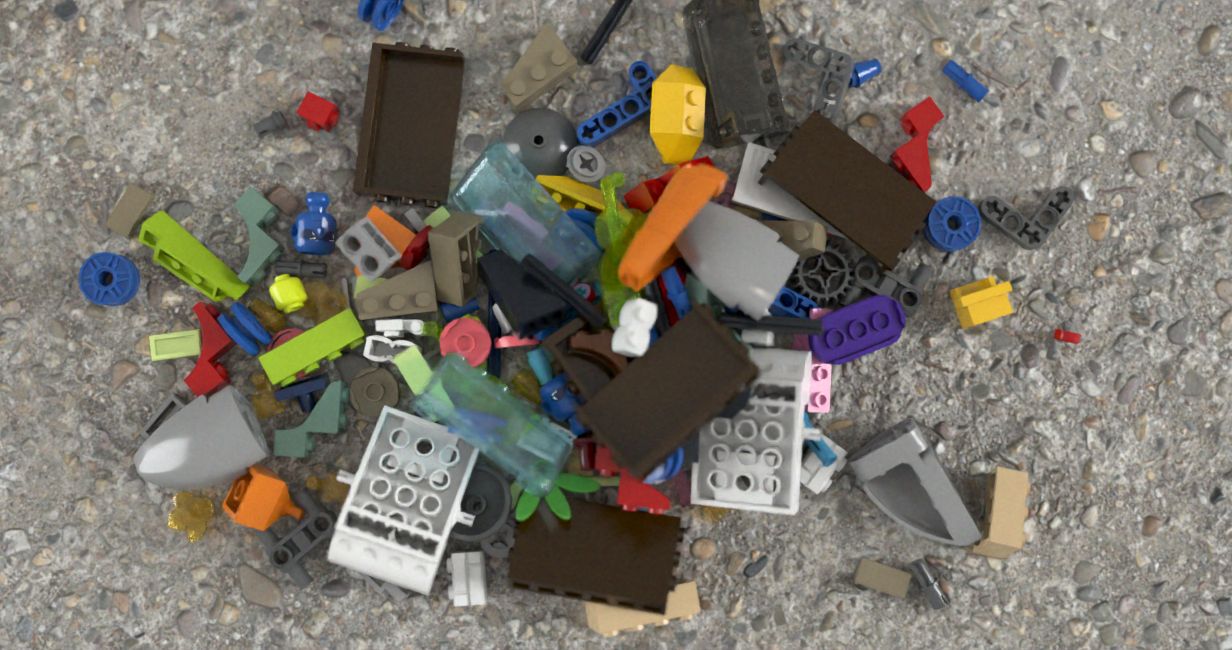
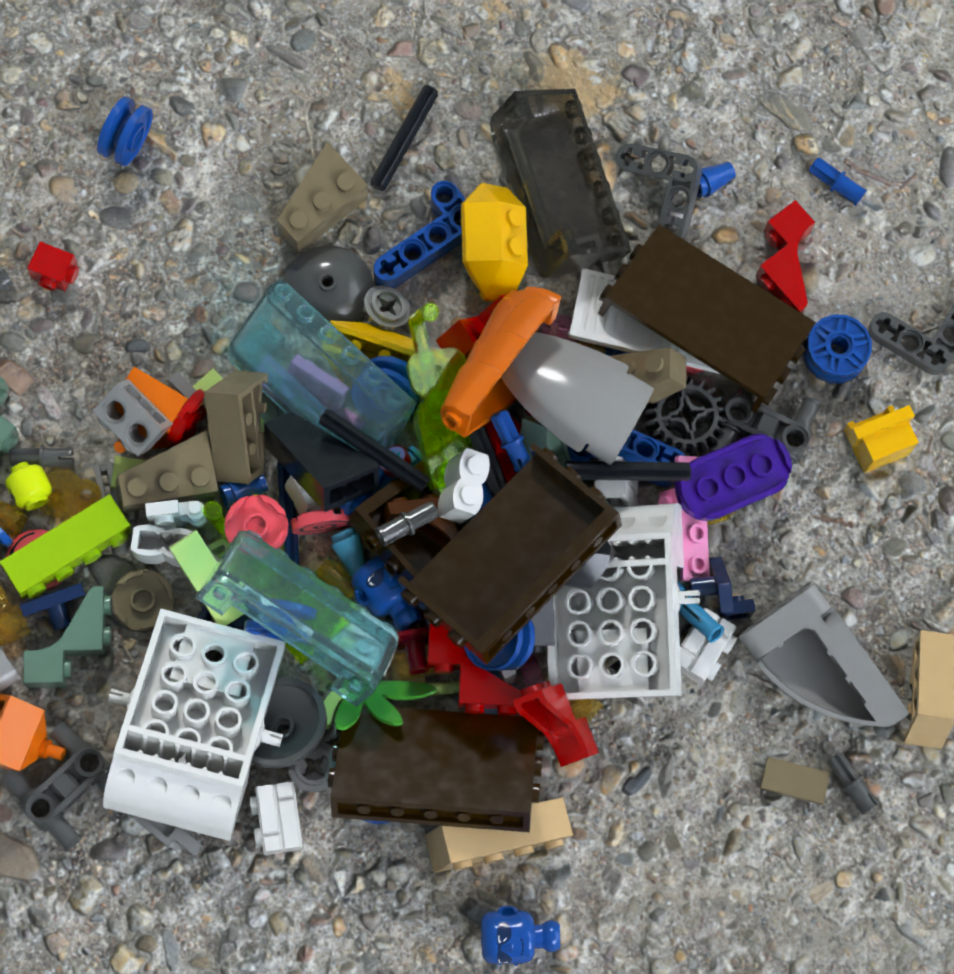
camera: 15 degrees left, 10 degrees down
(315, 230) = (58, 405): blue piece -> none
(332, 488) = (102, 721): clear yellow plate -> none
(409, 124) = (166, 274): dark brown panel -> none
(585, 356) = (406, 523): none -> dark grey axle
(690, 515) = (551, 714): none -> red arch
(833, 417) = (716, 584): none -> dark blue tile
(848, 434) = (741, 607): none -> dark blue plate

